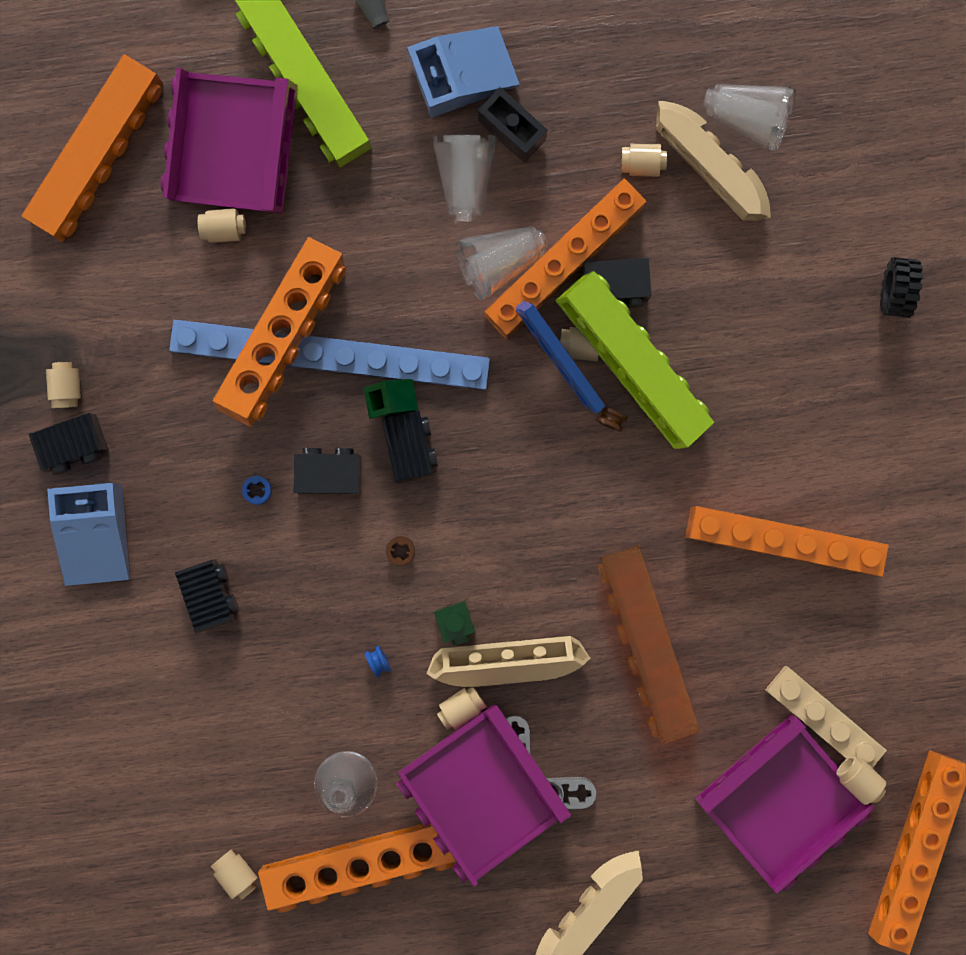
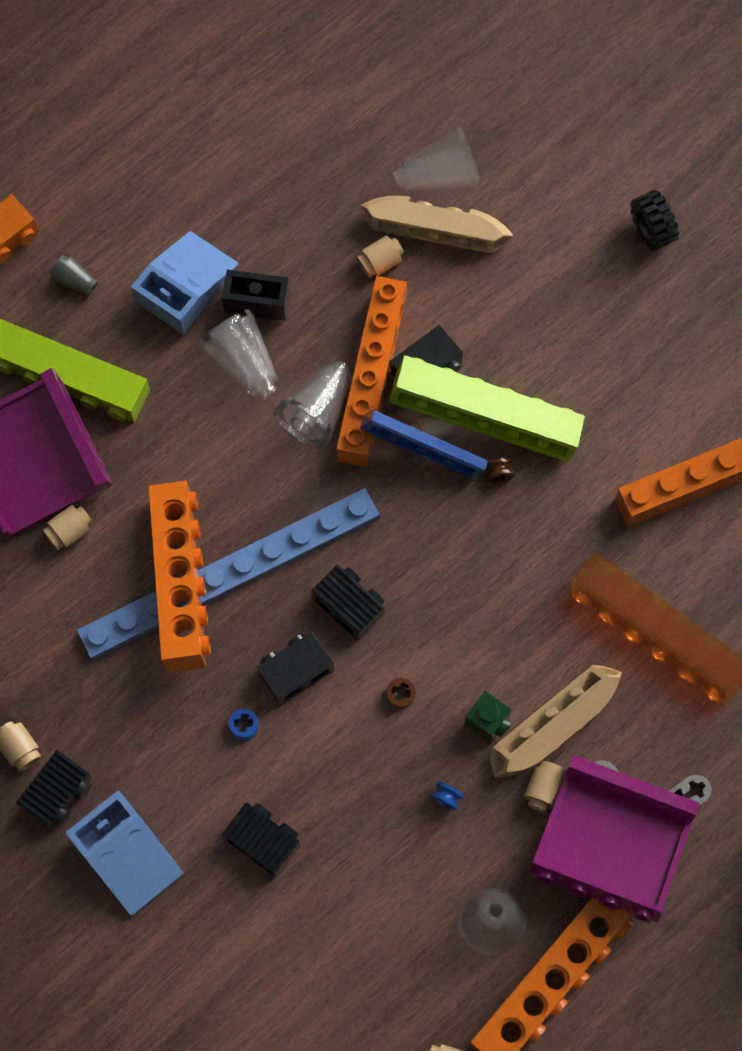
camera: 35 degrees left, 15 degrees down
(397, 395) = (306, 570): dark green brick -> none

